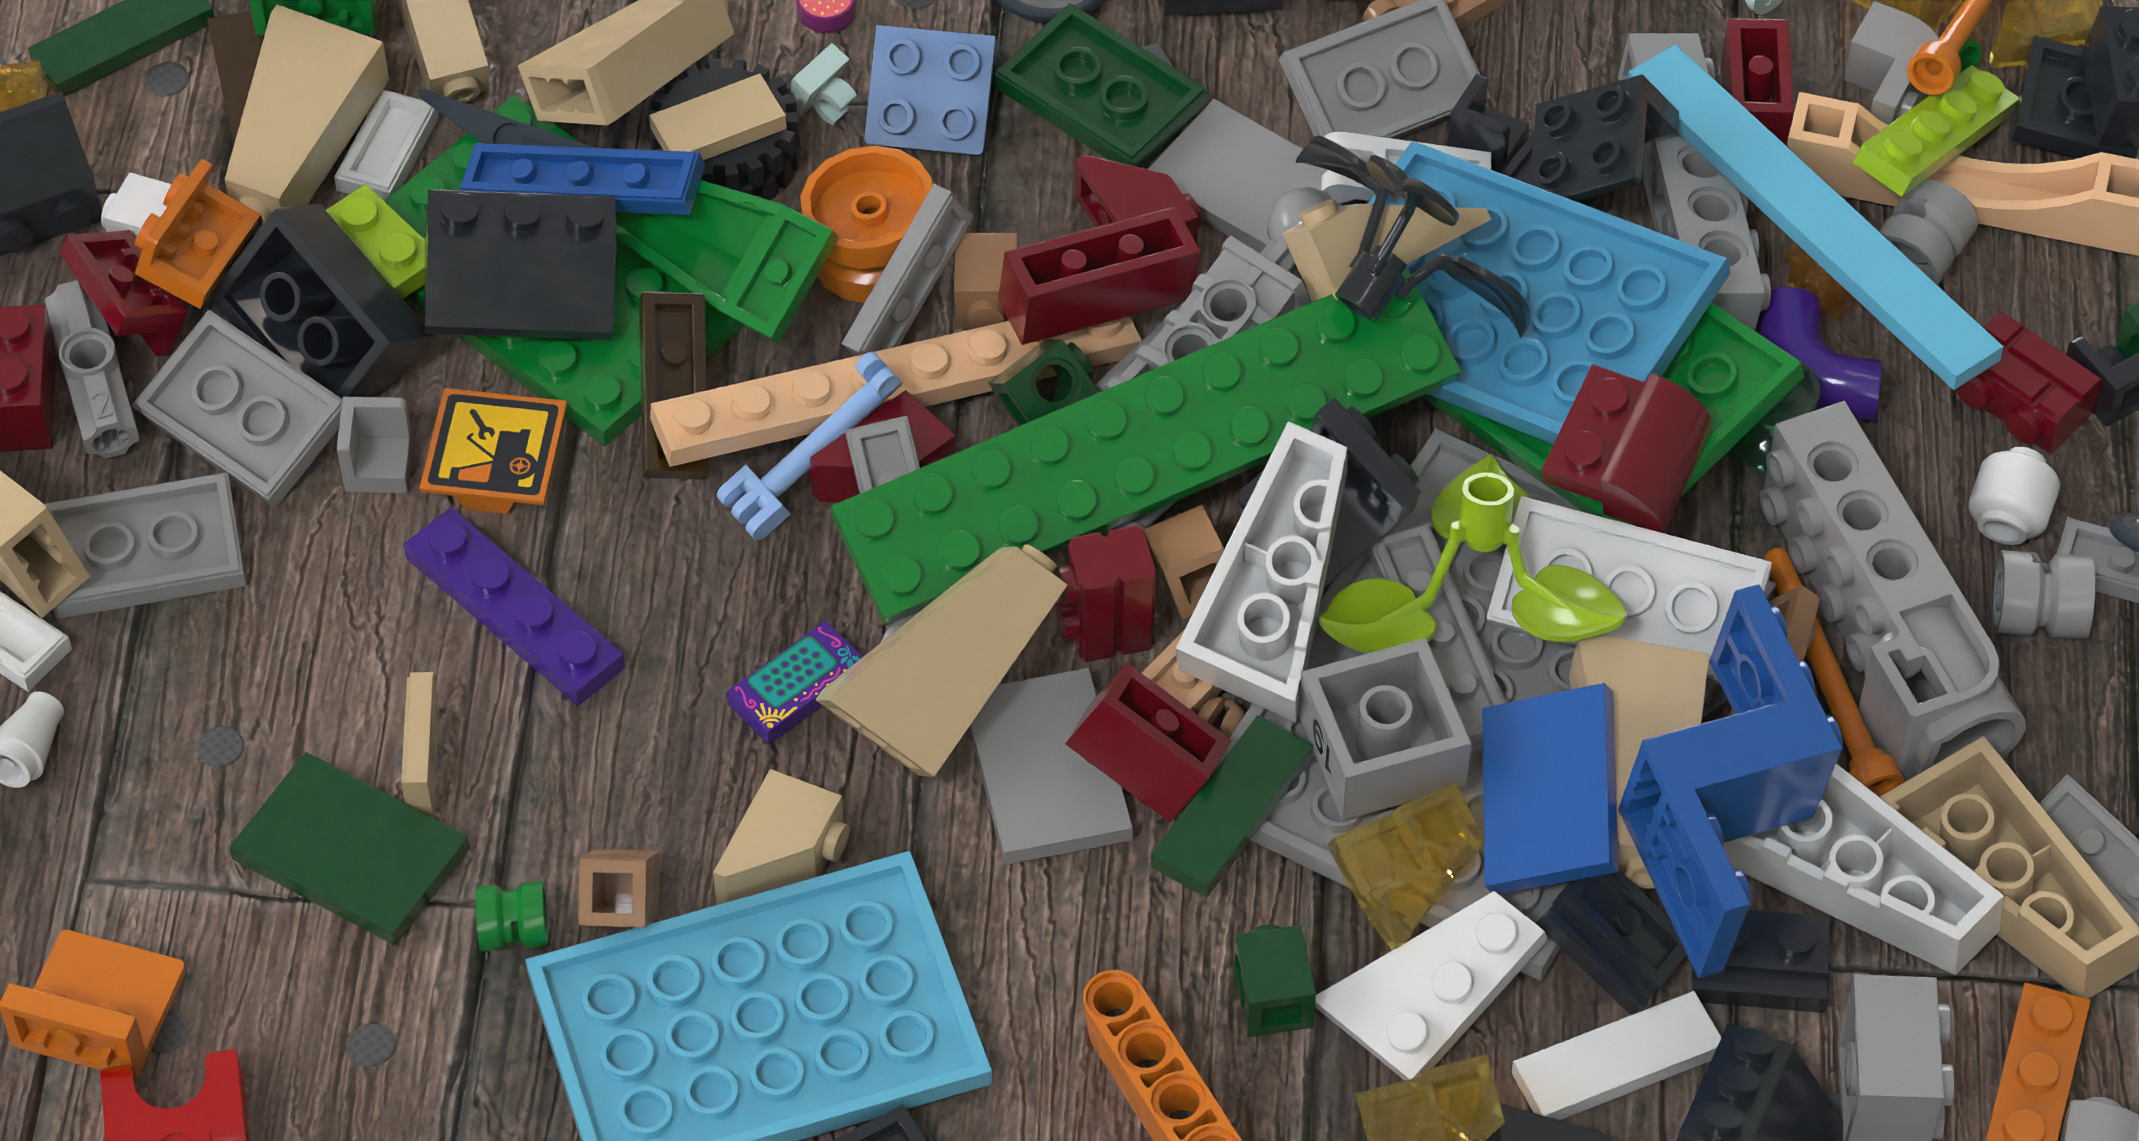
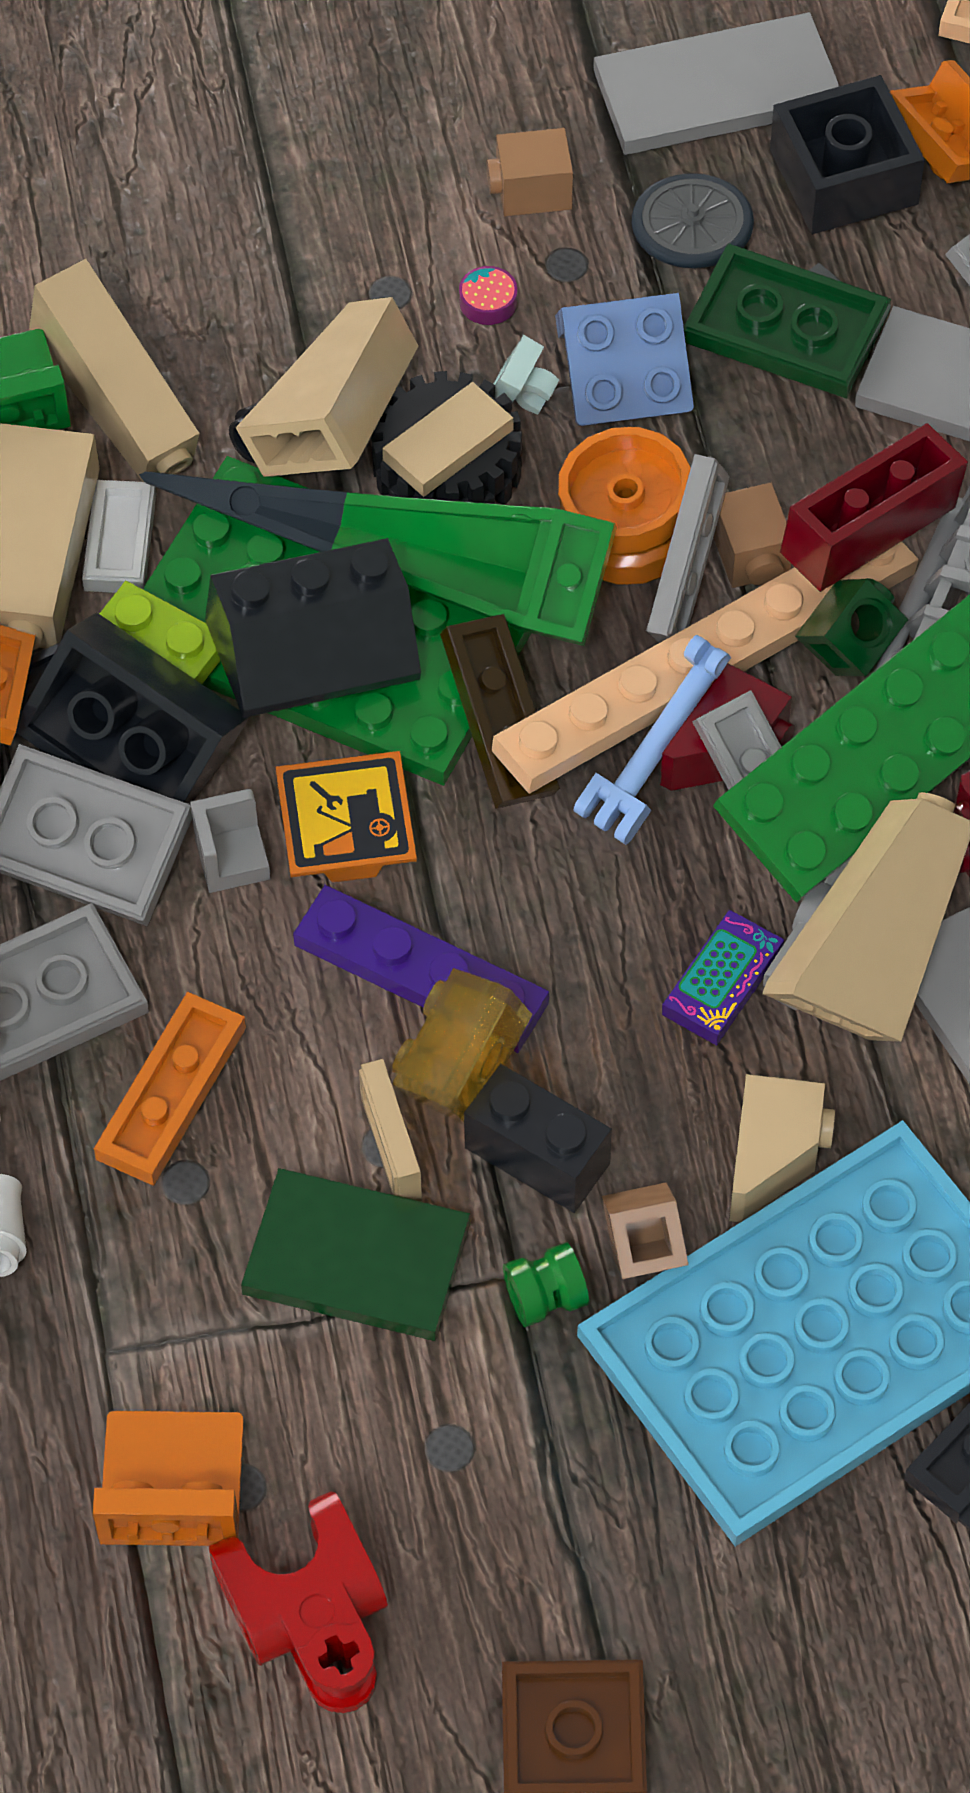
camera: 15 degrees left, 5 degrees up
(233, 655) = (170, 1088): none -> orange plate
(513, 681) = (461, 1044): none -> clear yellow slope
(555, 782) = (537, 1138): none -> black brick
(637, 178) = (404, 513): blue tile -> none
(1123, 191) = (854, 423): dark red slope -> none

